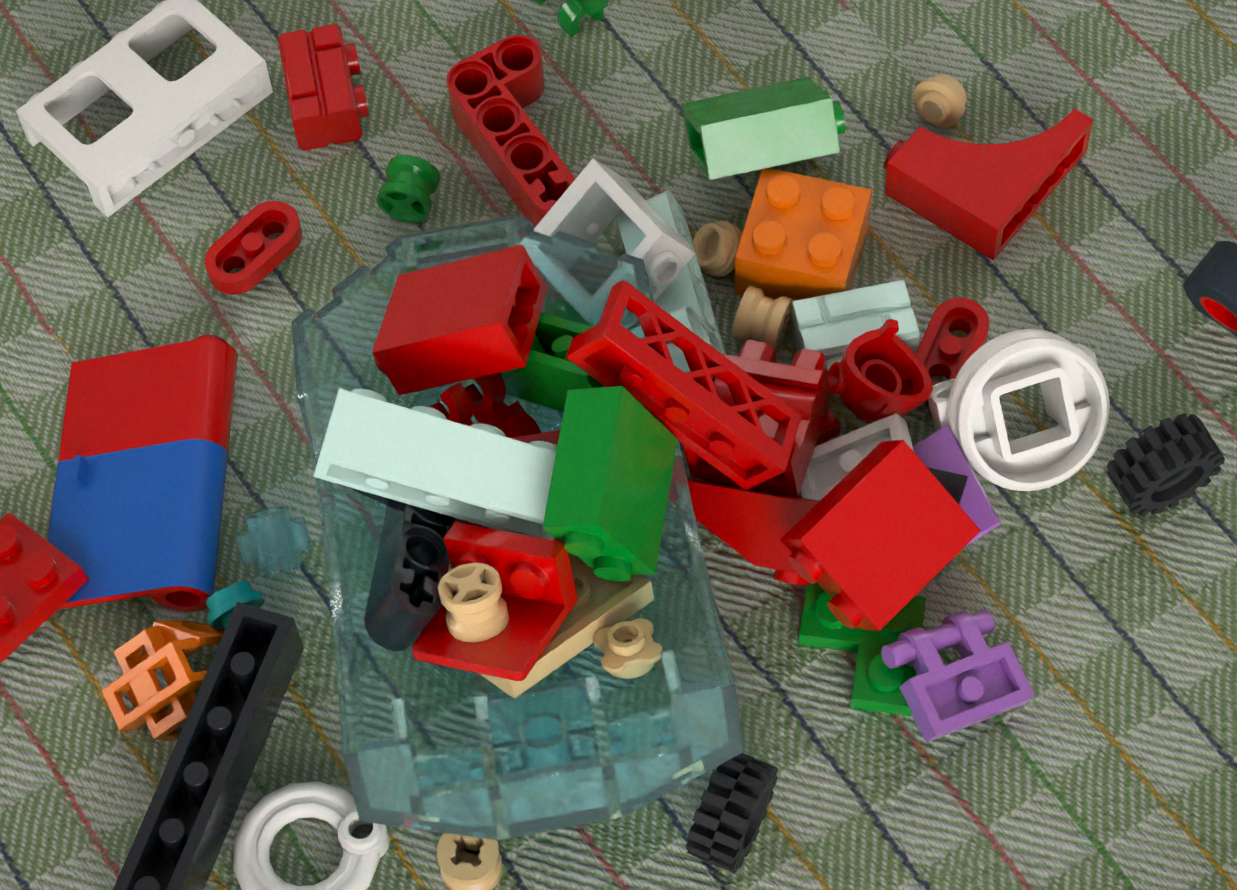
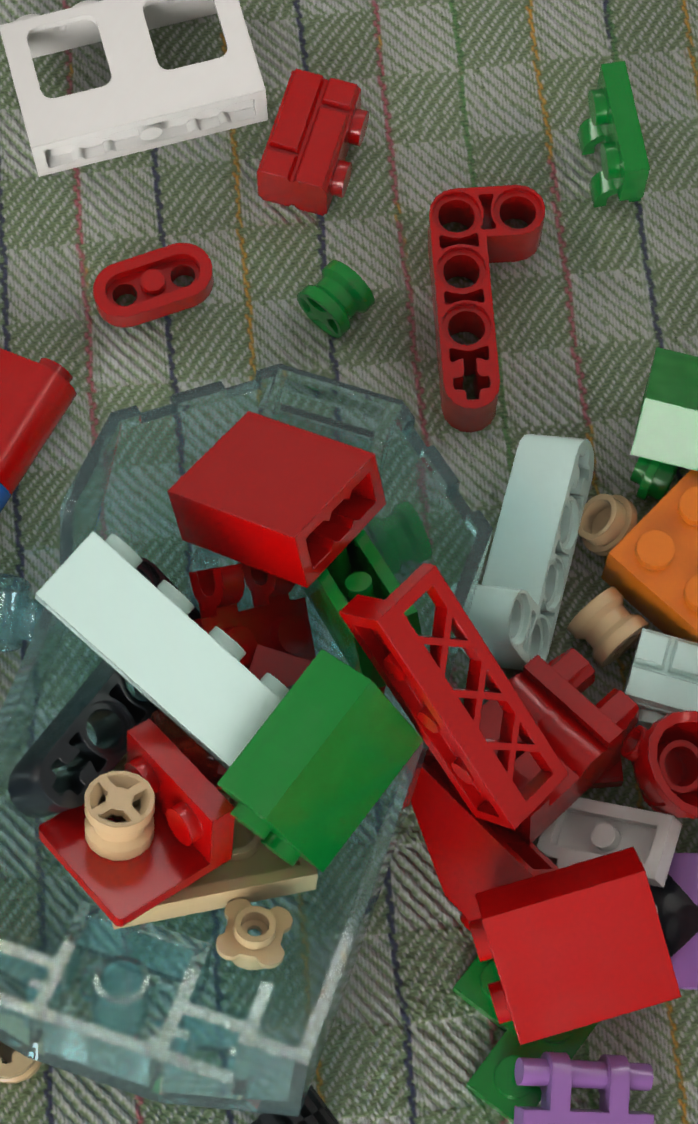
camera: 25 degrees right, 10 degrees up
(596, 200) = (492, 420): white window -> none
(733, 195) = (653, 478): none -> green plate

